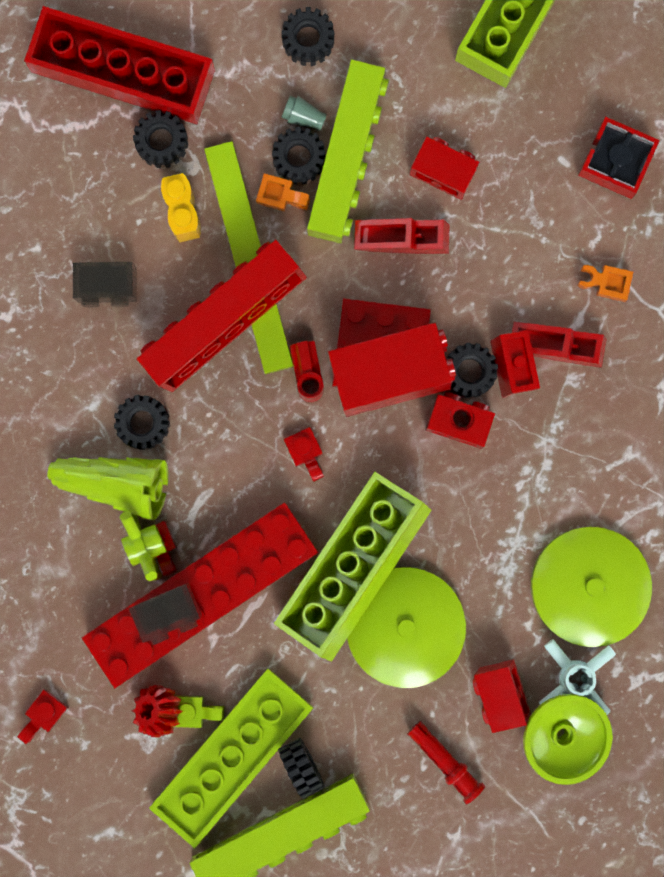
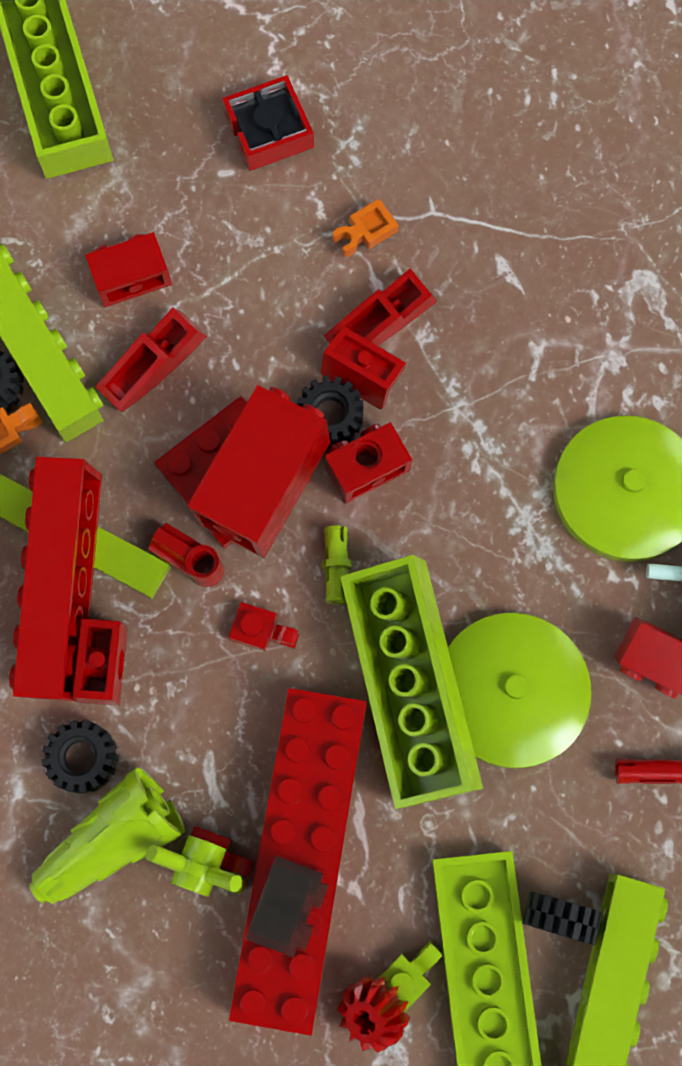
camera: 50 degrees left, 10 degrees down
(201, 383) = (100, 662): none -> red brick
(384, 458) = (335, 563): none -> lime pin

